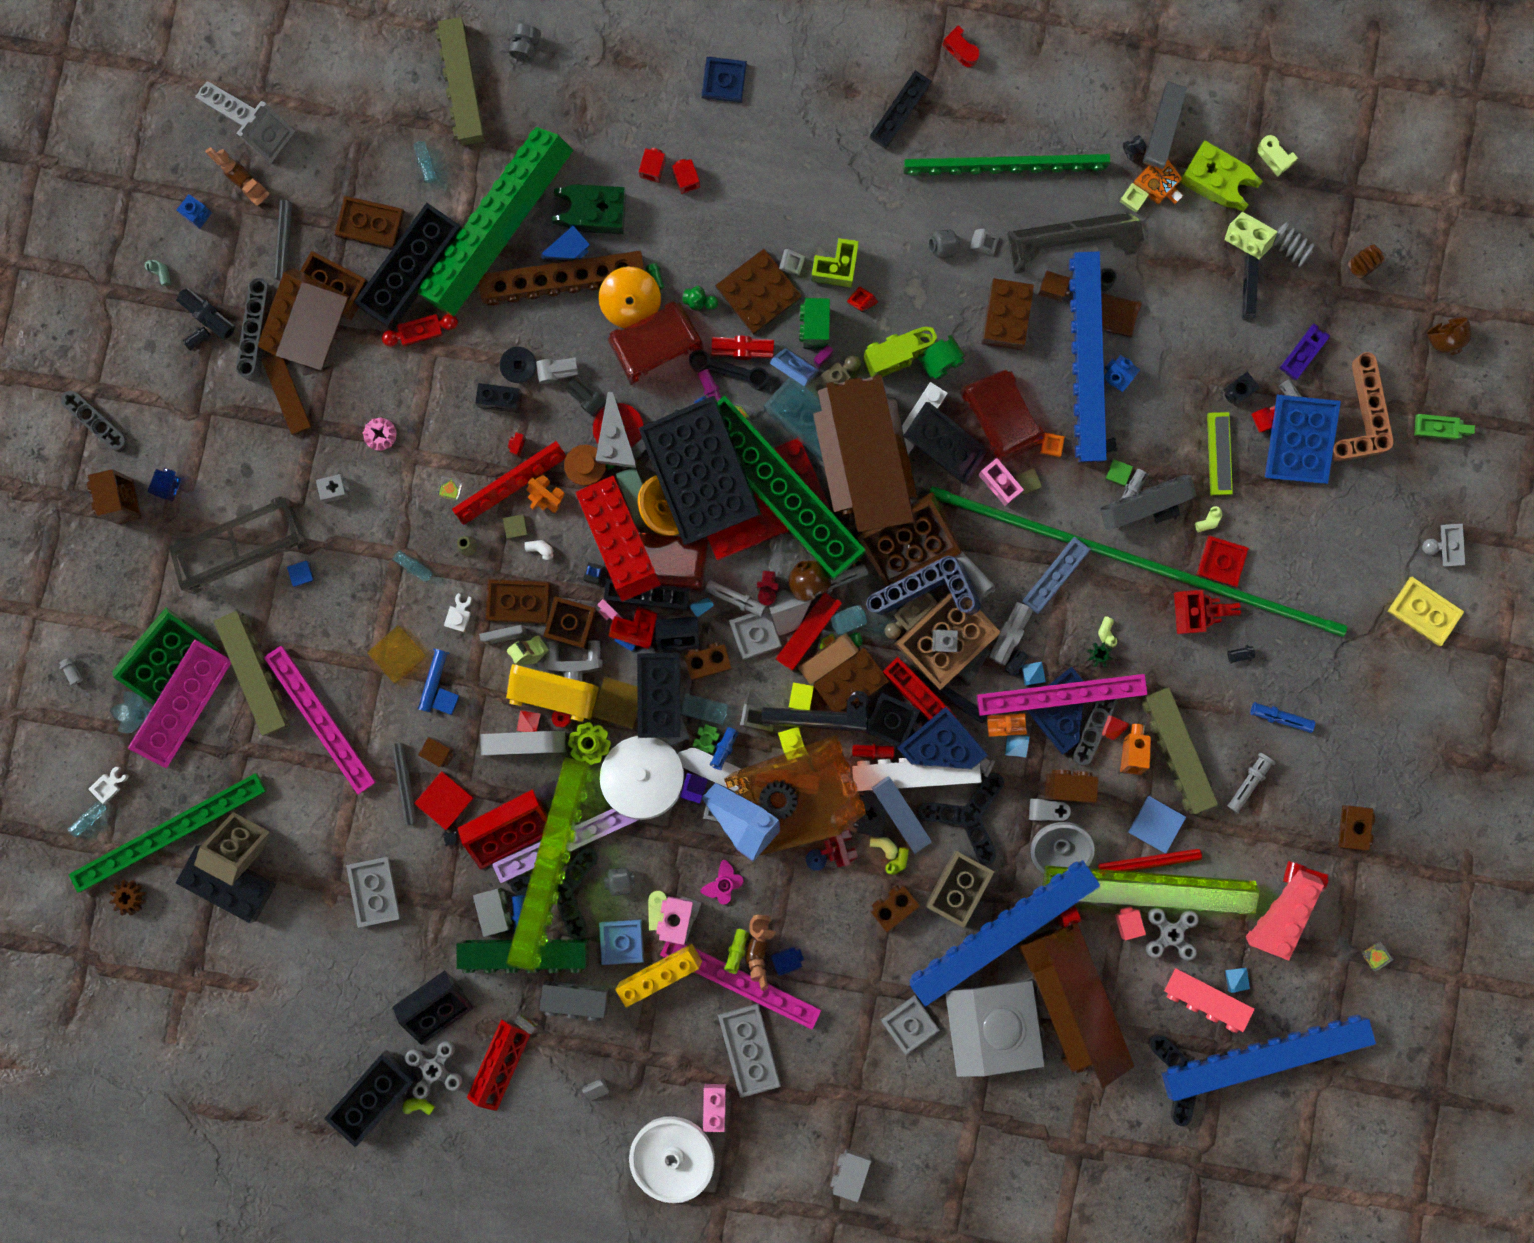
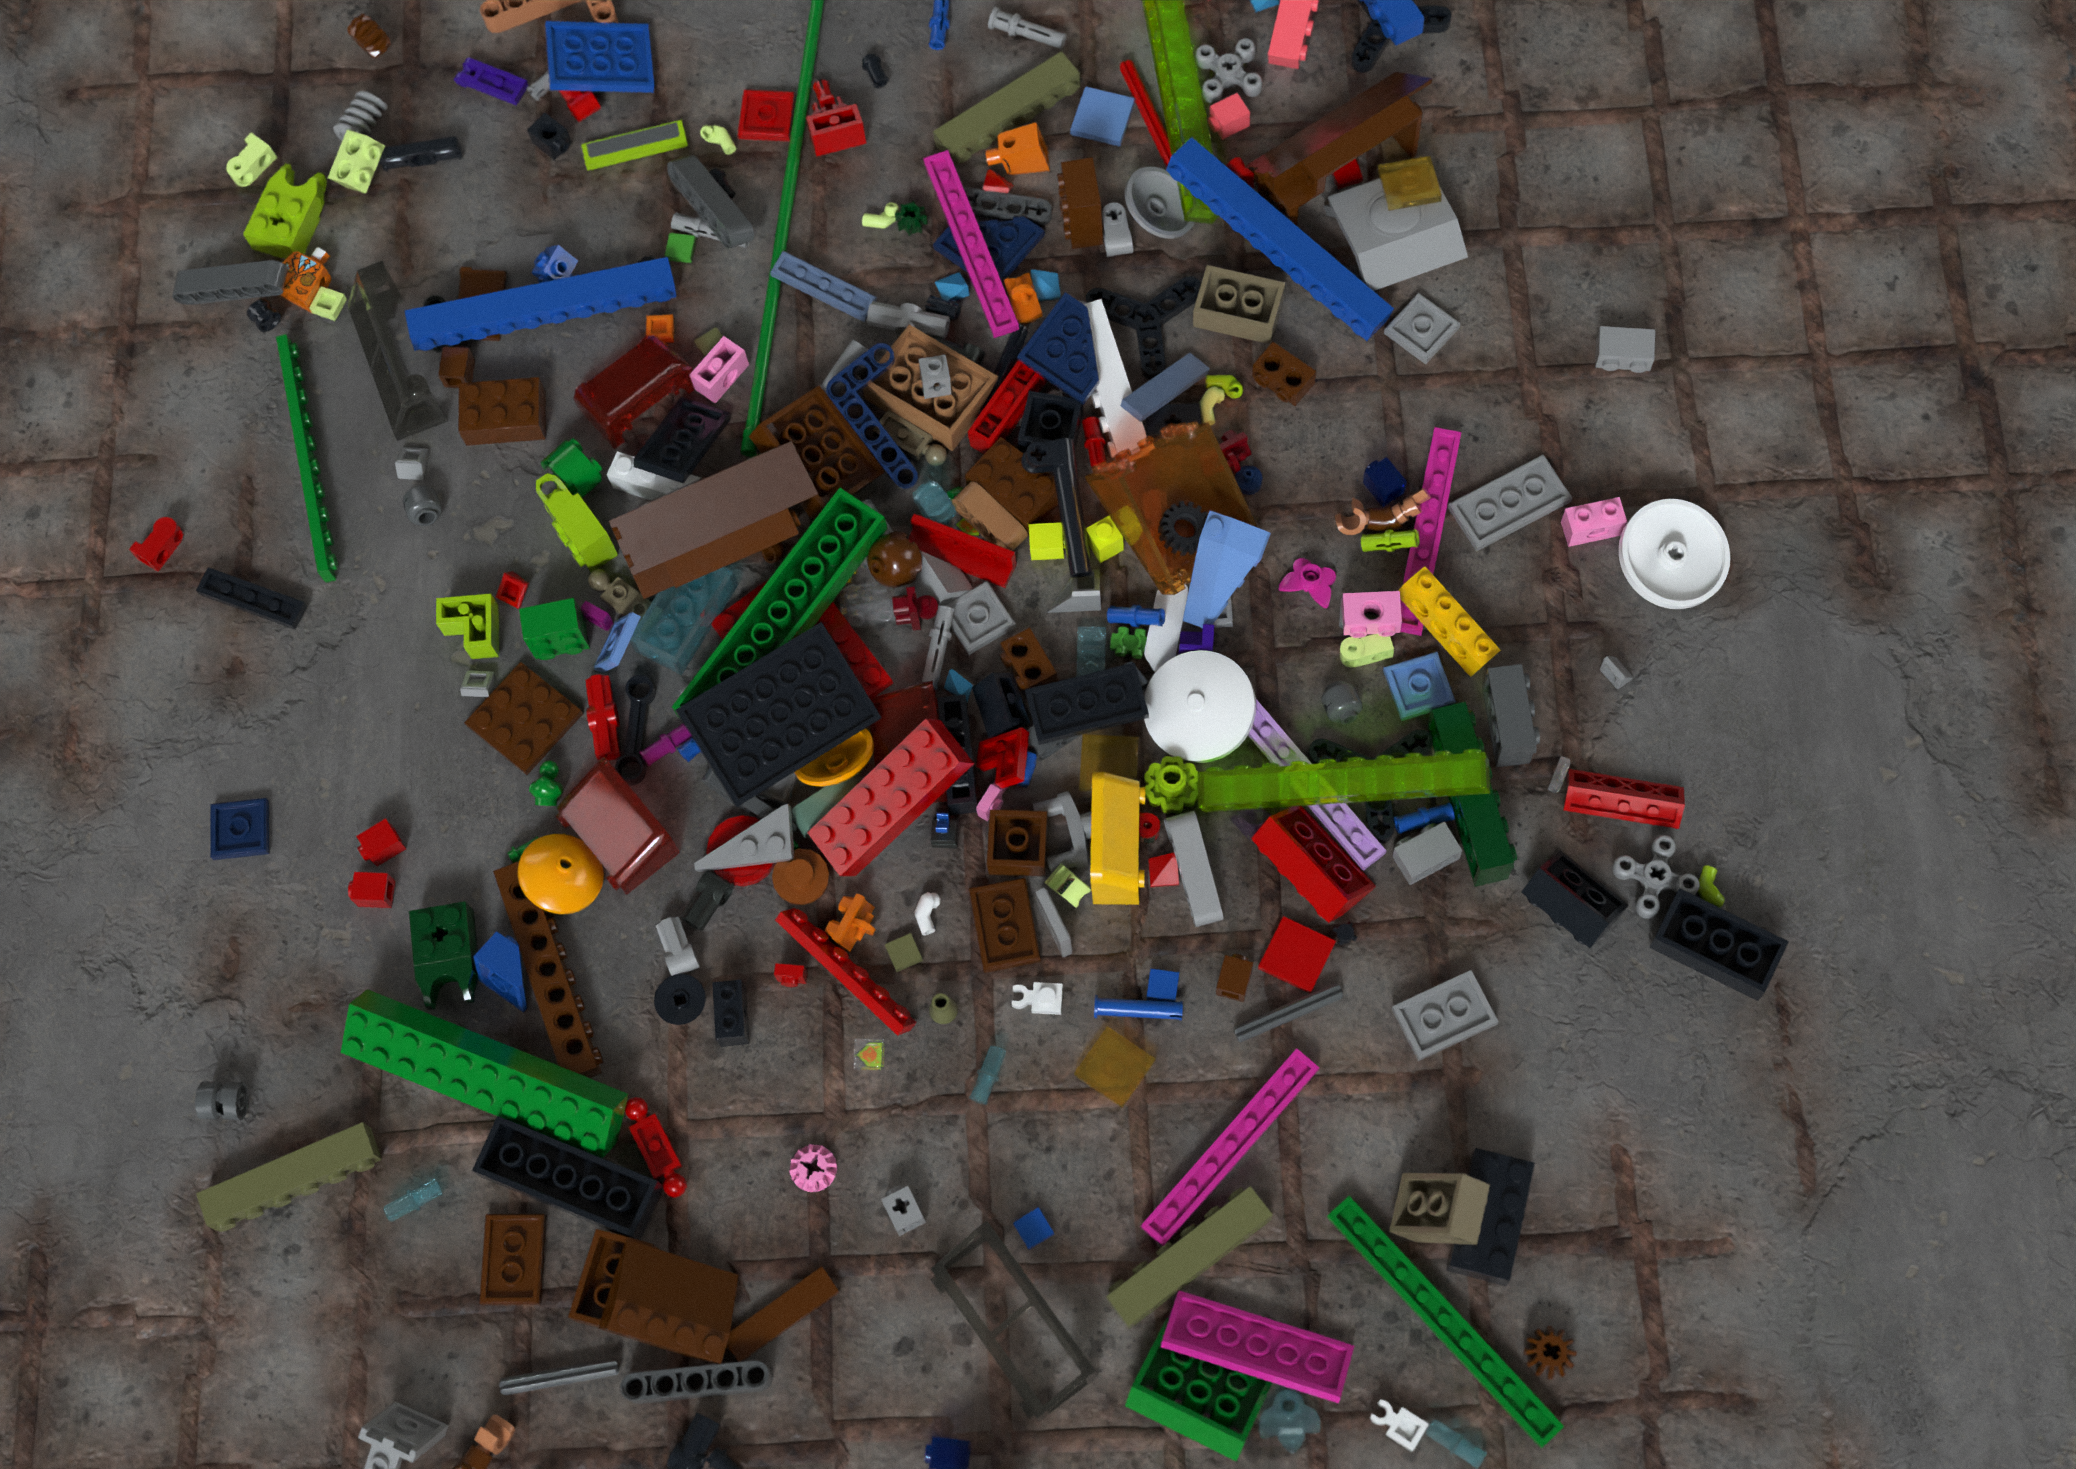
camera: 95 degrees left, 15 degrees down
(1025, 1047) = (1409, 183): none -> clear yellow tile

